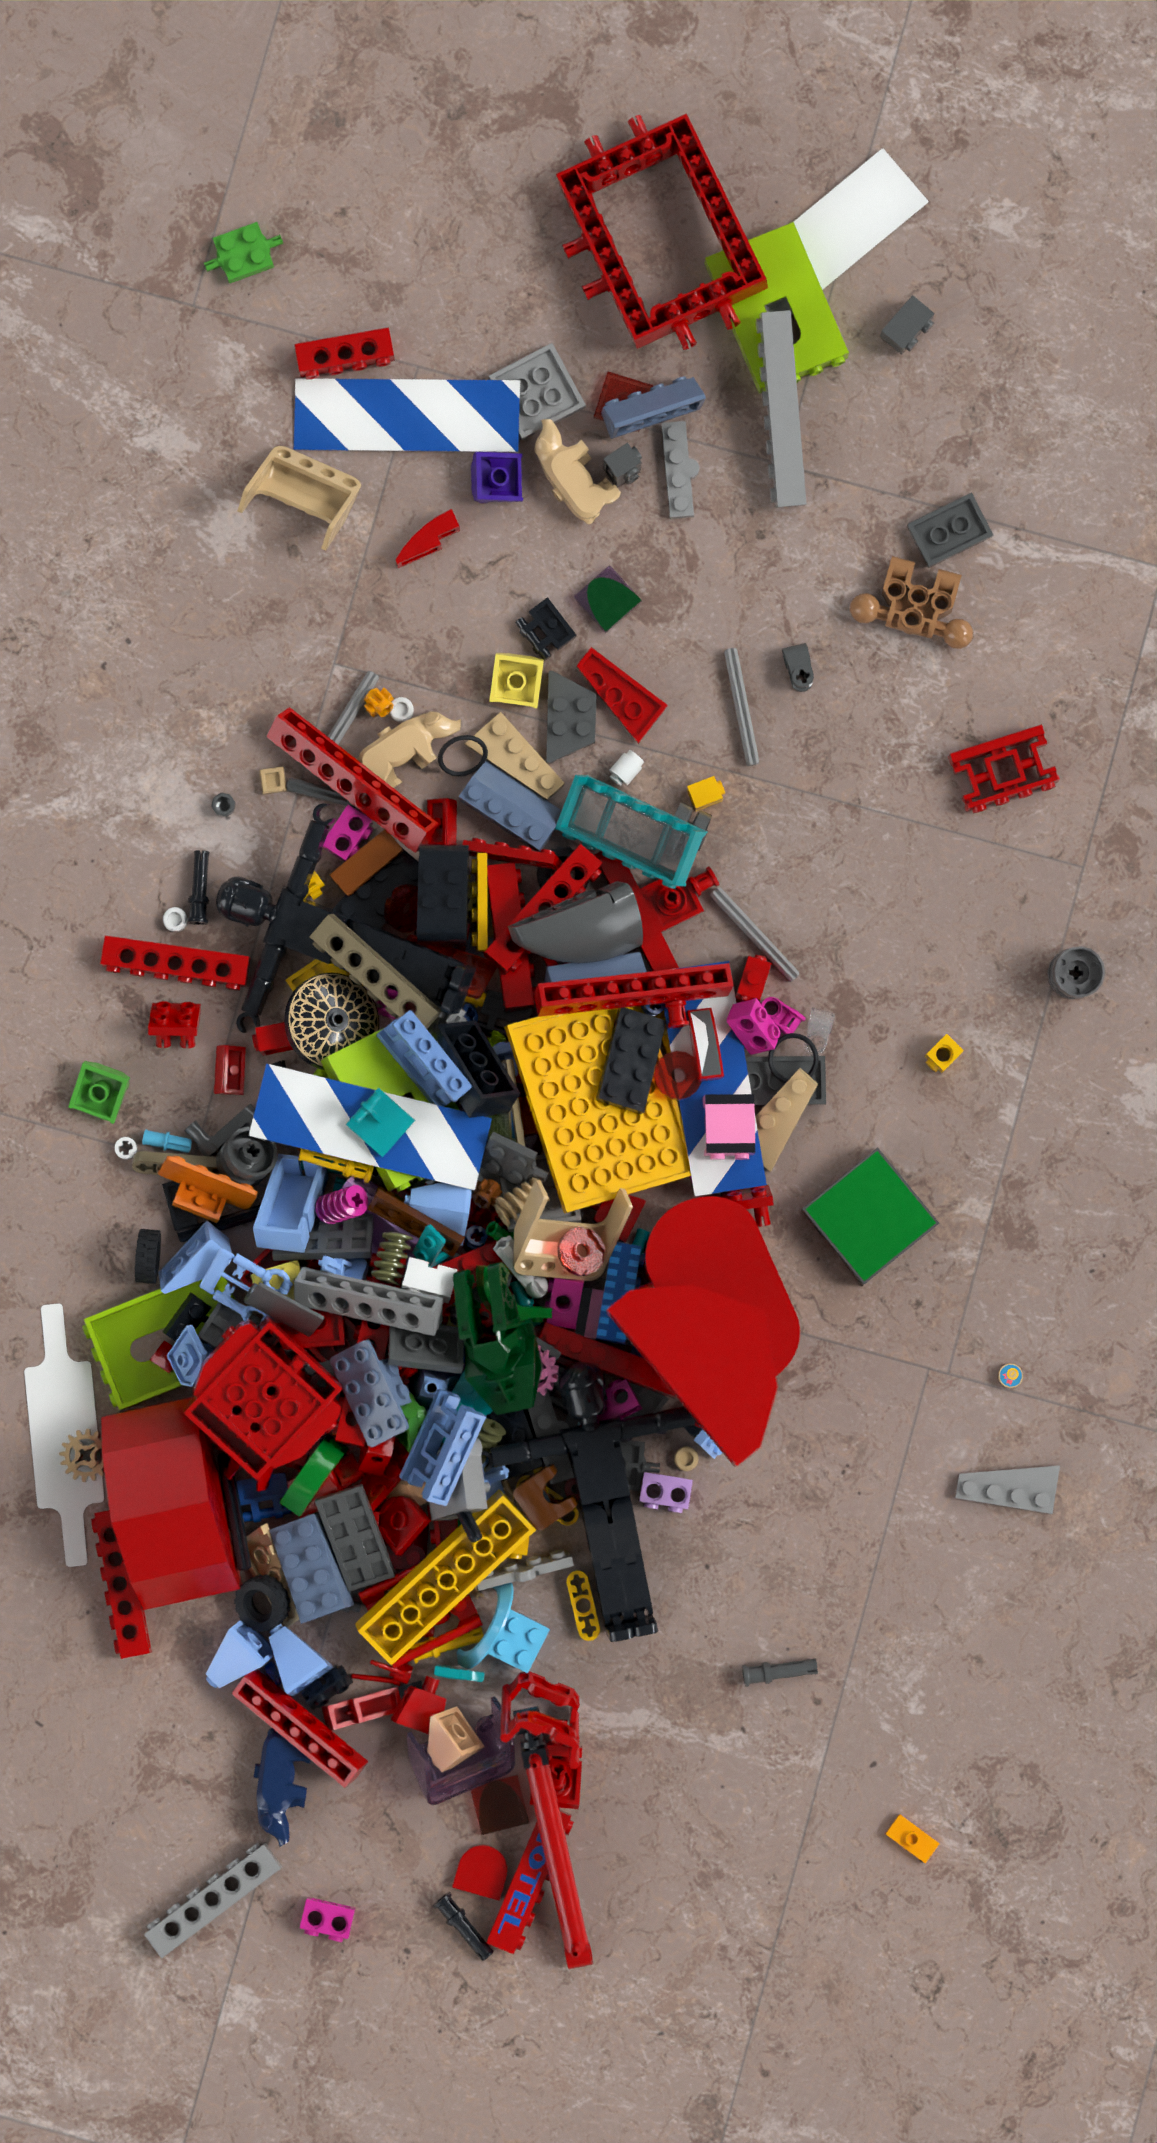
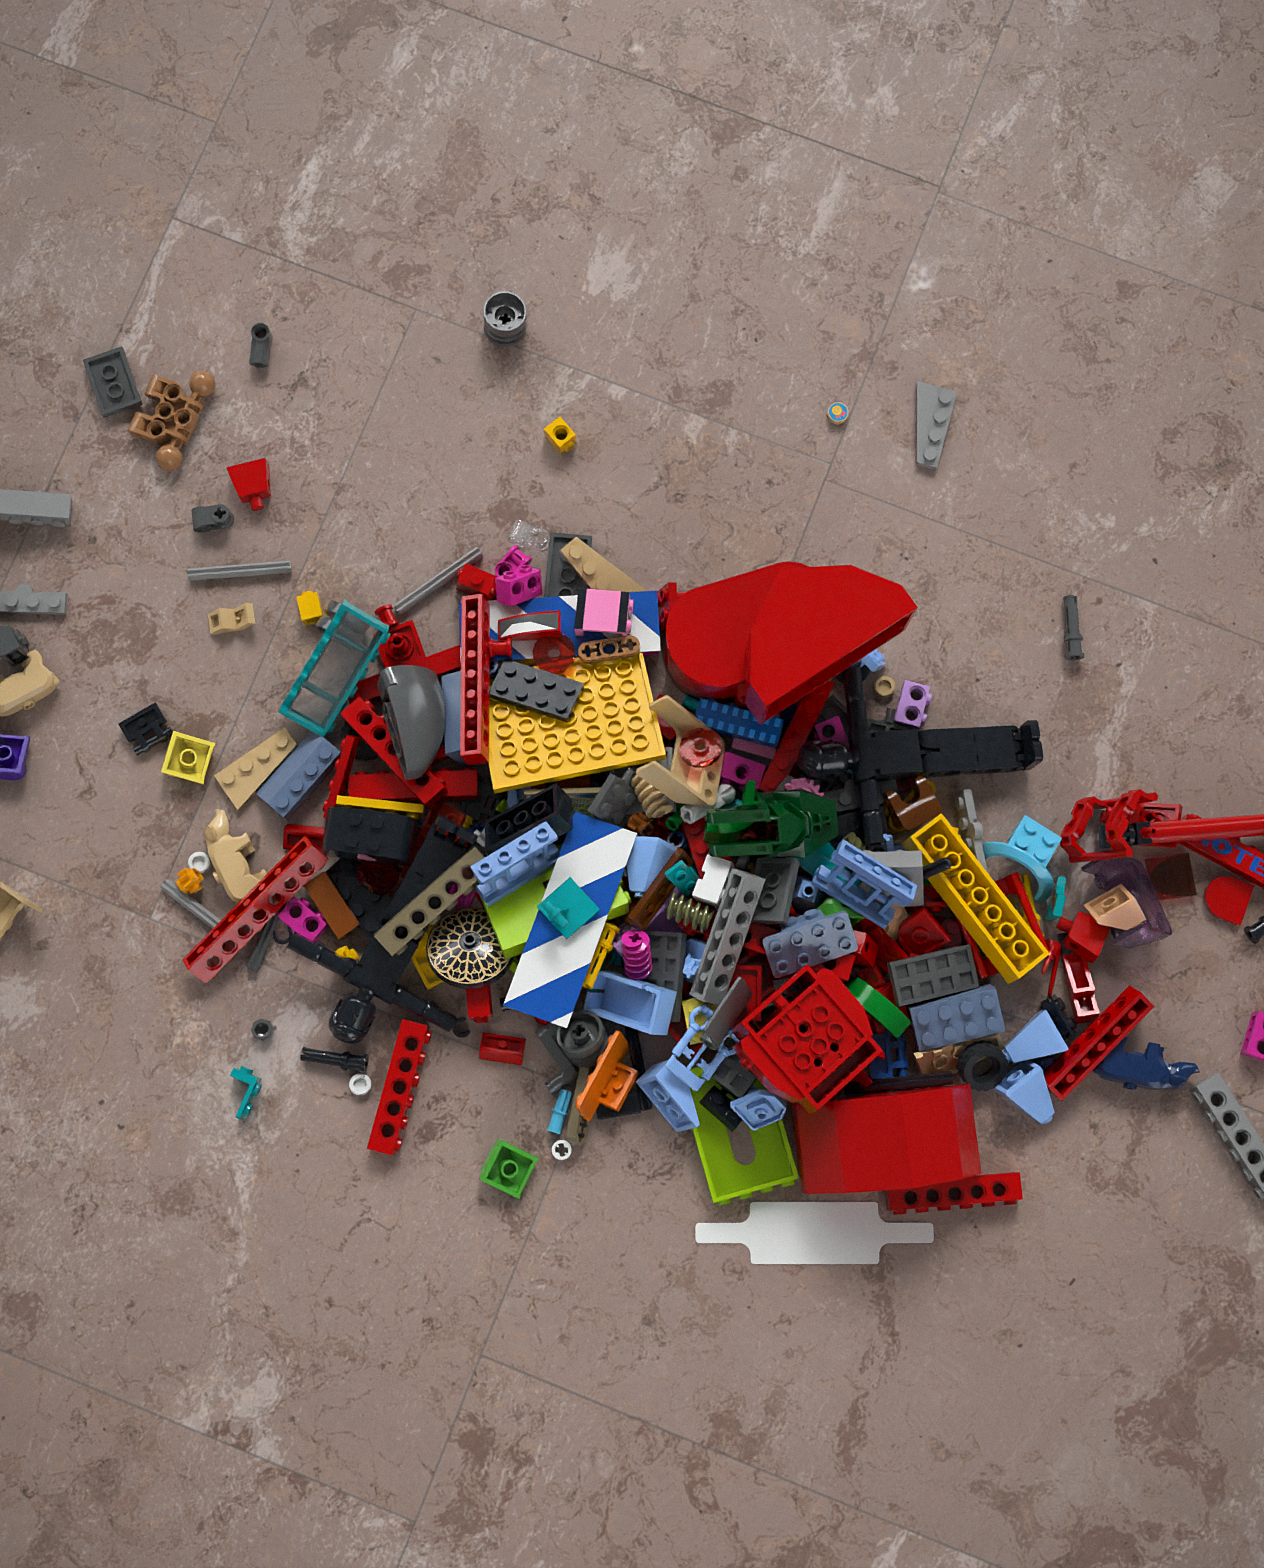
camera: 85 degrees left, 5 degrees down
(78, 1446) = (827, 1219): tan gear -> none
(147, 1256) = (662, 1137): black tyre -> none
(160, 1358) = (753, 1137): red slope -> none
(171, 792) = (245, 1075): none -> teal bracket
(174, 1020) = (452, 1092): red plate -> none
(273, 780) = (246, 983): tan tile -> none
(428, 538) = (49, 821): red slope -> none
(459, 738) = (231, 809): black tyre -> none
(570, 717) = (227, 717): dark grey wing -> none
(593, 1622) = (1019, 790): yellow beam -> none
(607, 599) = (128, 673): dark green tile -> none
(624, 696) = (215, 668): red wing -> none
(626, 768) = (279, 672): white brick -> none
(682, 1146) = (612, 641): none -> medium nougat beam
(683, 705) = (229, 620): none -> tan slope
(788, 1036) = (530, 556): black tyre -> none
(846, 706) = (251, 482): none -> red torso
(870, 1216) = (692, 510): green tile -> none
(912, 1838) = (1220, 534): light orange plate -> none
(997, 749) = (308, 363): red fence -> none
(1010, 693) = (260, 346): none -> dark grey piece

